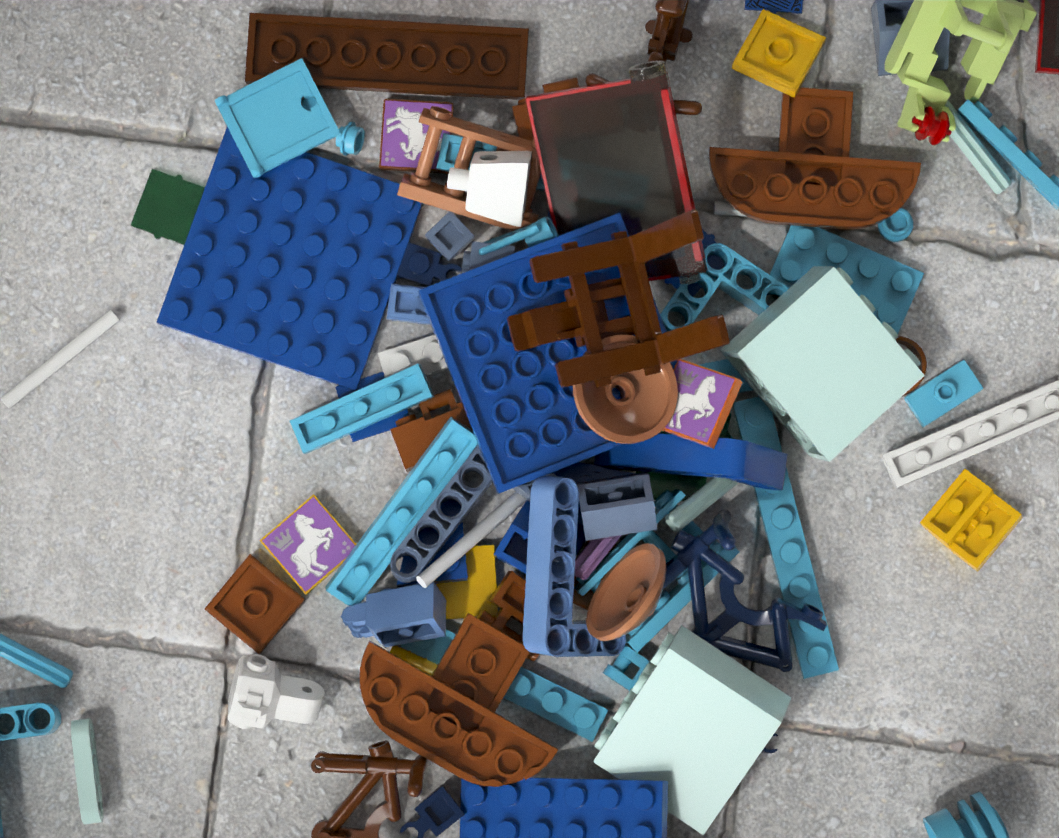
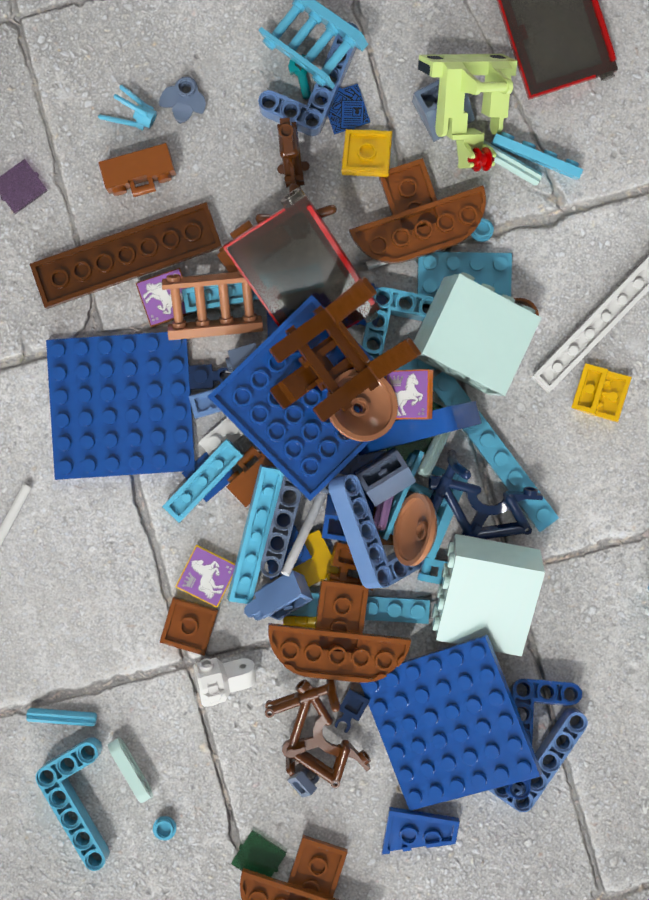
camera: 25 degrees left, 5 degrees up
(167, 207) = (31, 405): clear green piece -> none
(272, 122) = (71, 326): medium azure container -> none
(351, 139) = (125, 316): medium azure plate -> none
(449, 236) = (212, 351): sand blue tile -> none
(495, 184) = (227, 309): white torso -> none
(532, 234) = (264, 330): medium azure plant -> none
(943, 393) = (554, 322): medium azure plate -> none

